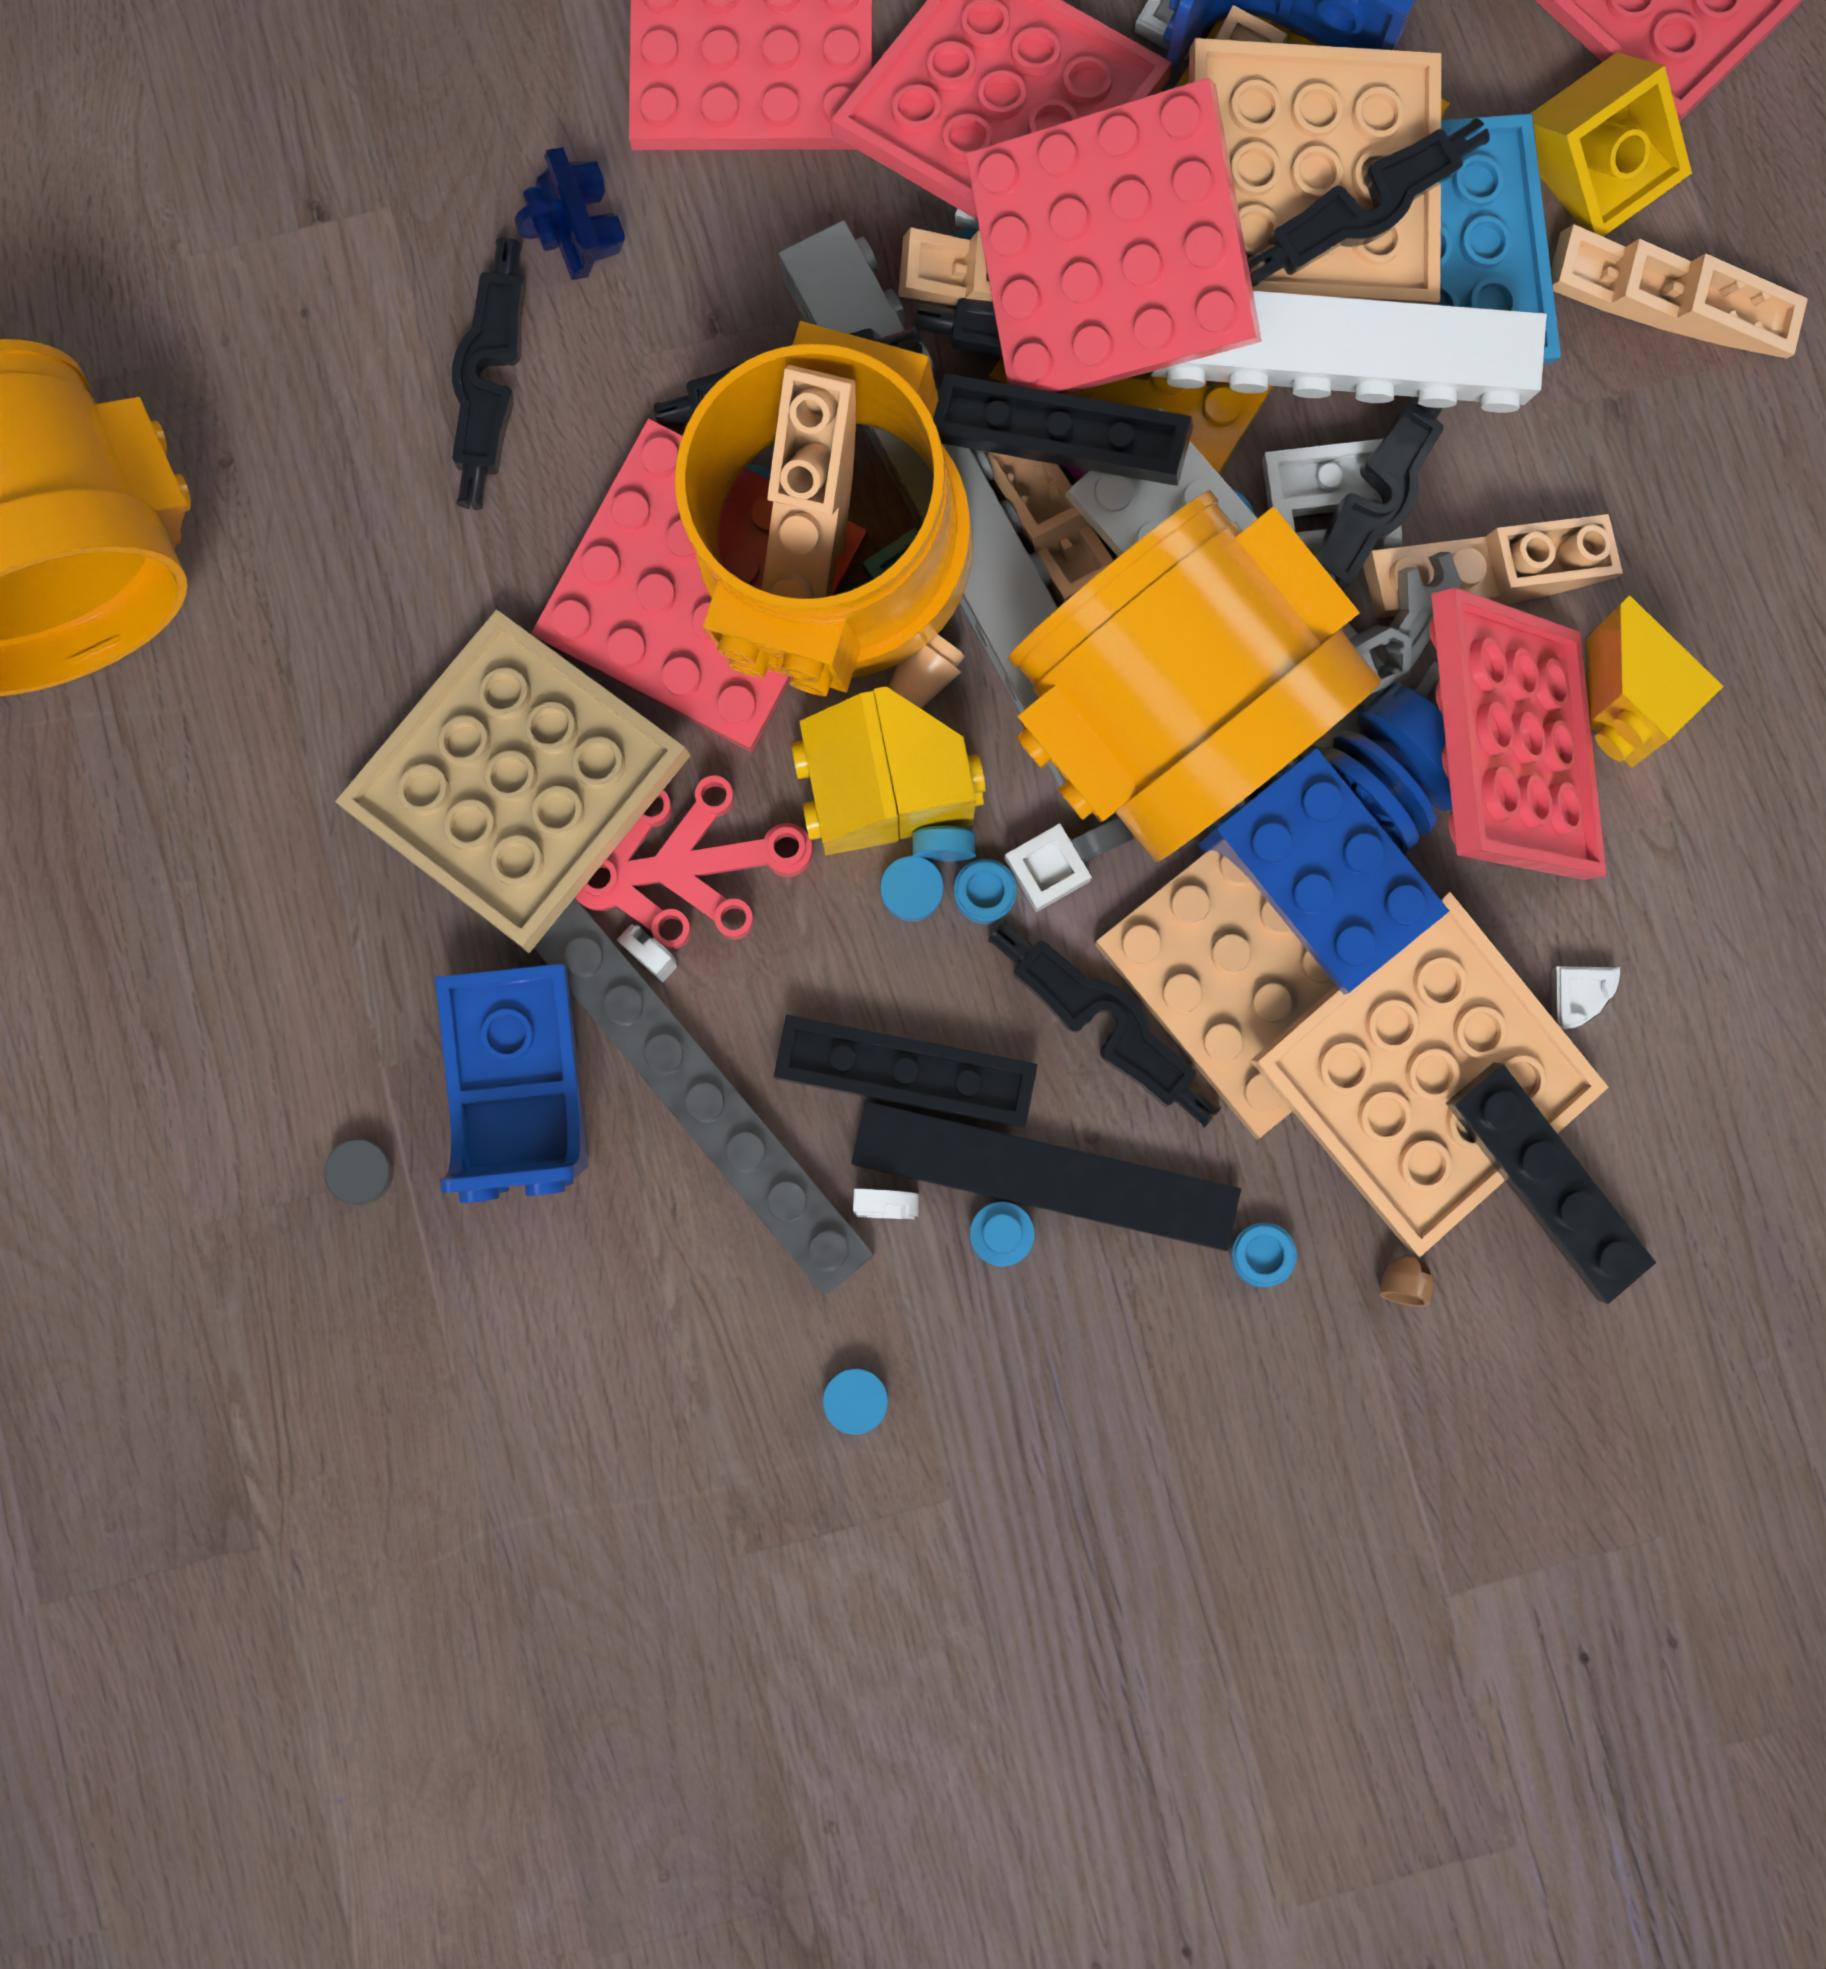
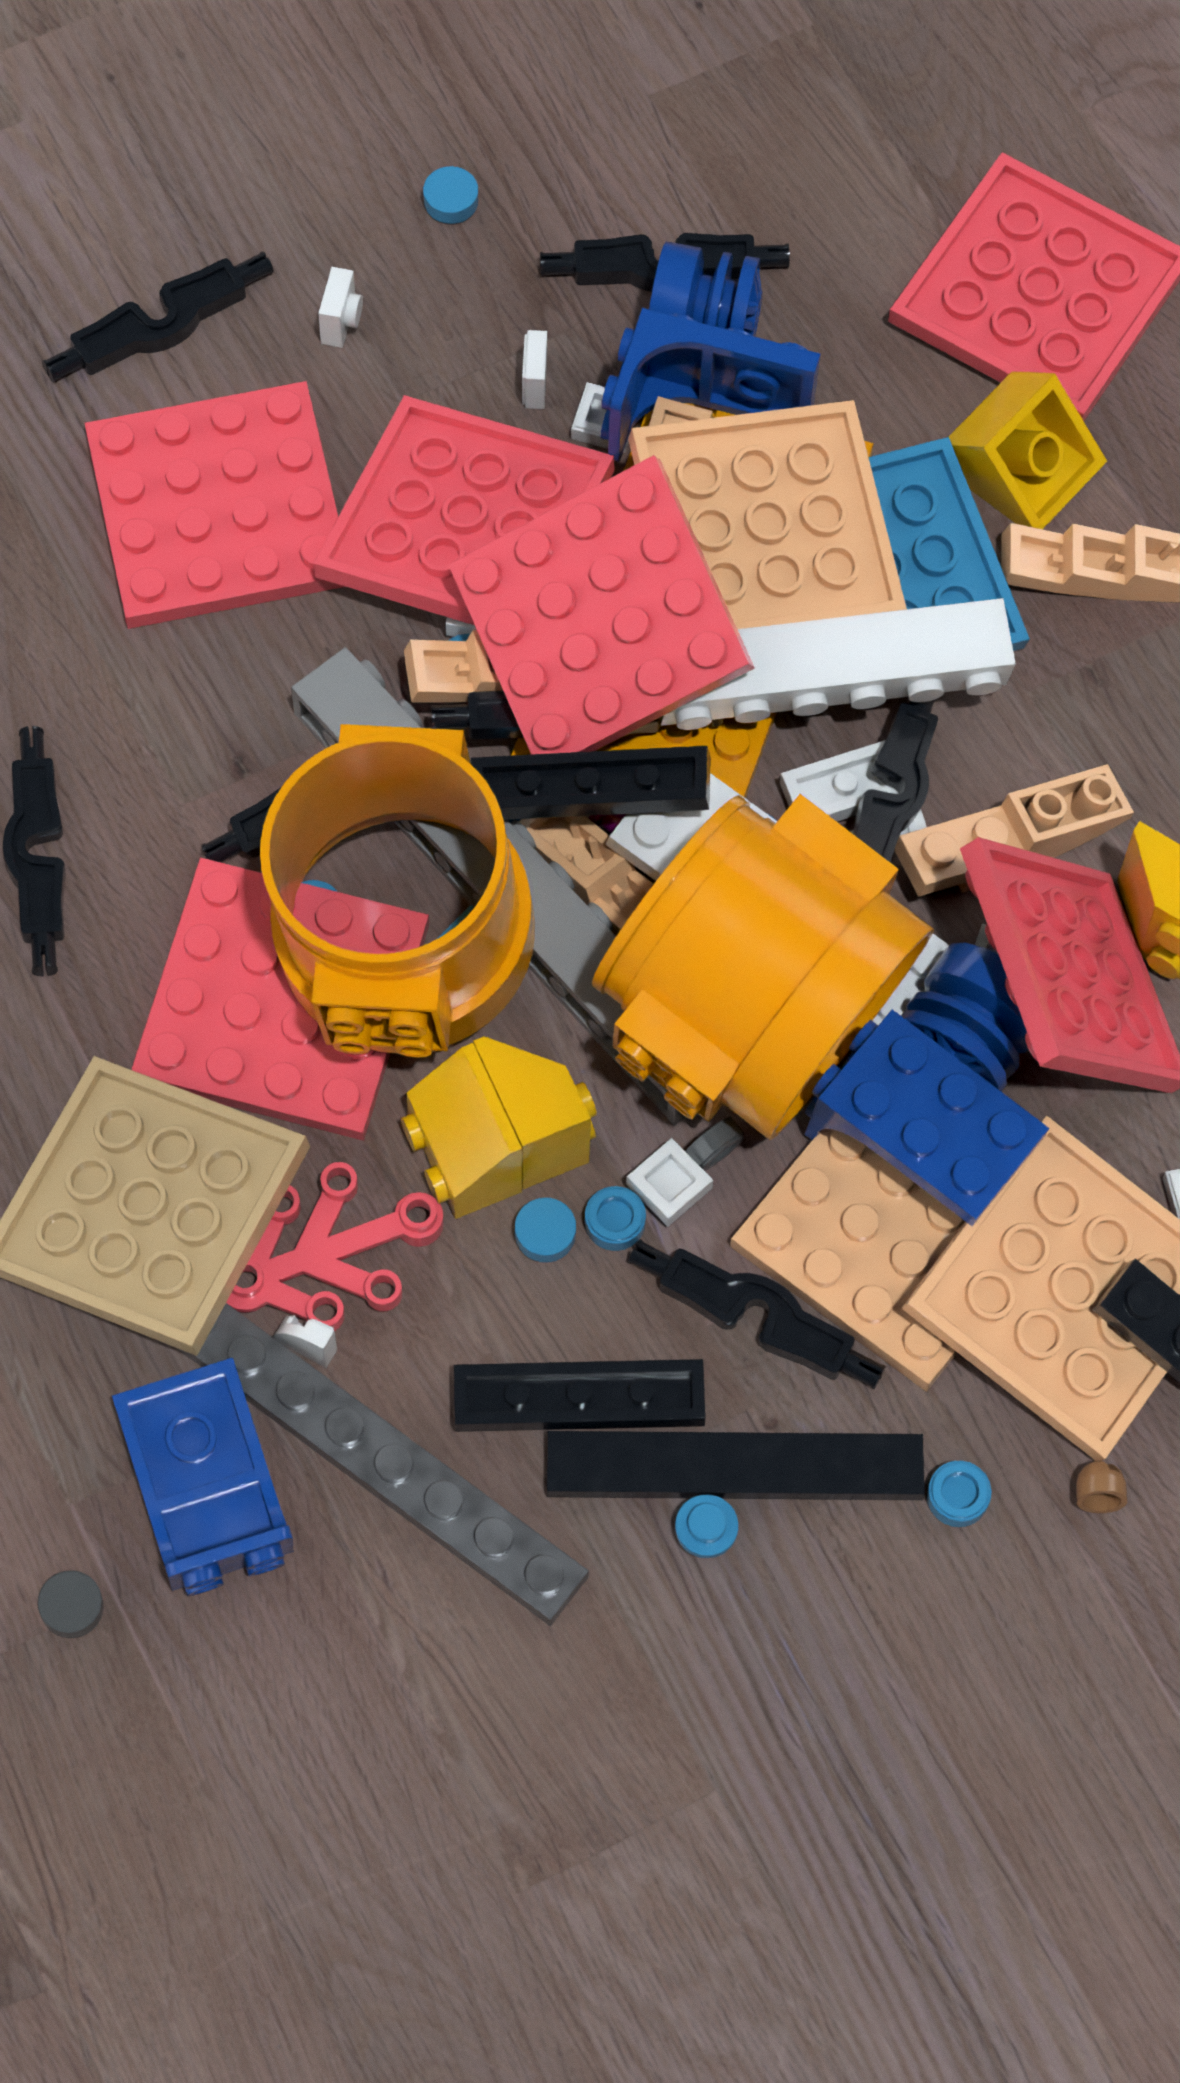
camera: 15 degrees left, 15 degrees down
(560, 218) = (80, 698): clear blue hips -> none
(810, 483) = (379, 854): light nougat slope -> none
(855, 1401) = (603, 1714): dark azure tile -> none
(885, 1204) = (587, 1521): white tile -> none
(927, 672) = (518, 1022): light nougat cone -> none
(944, 843) = (567, 1179): dark azure tile -> none
(1392, 185) = (838, 517): black piece -> none
(1410, 627) = (952, 893): light grey piece -> none

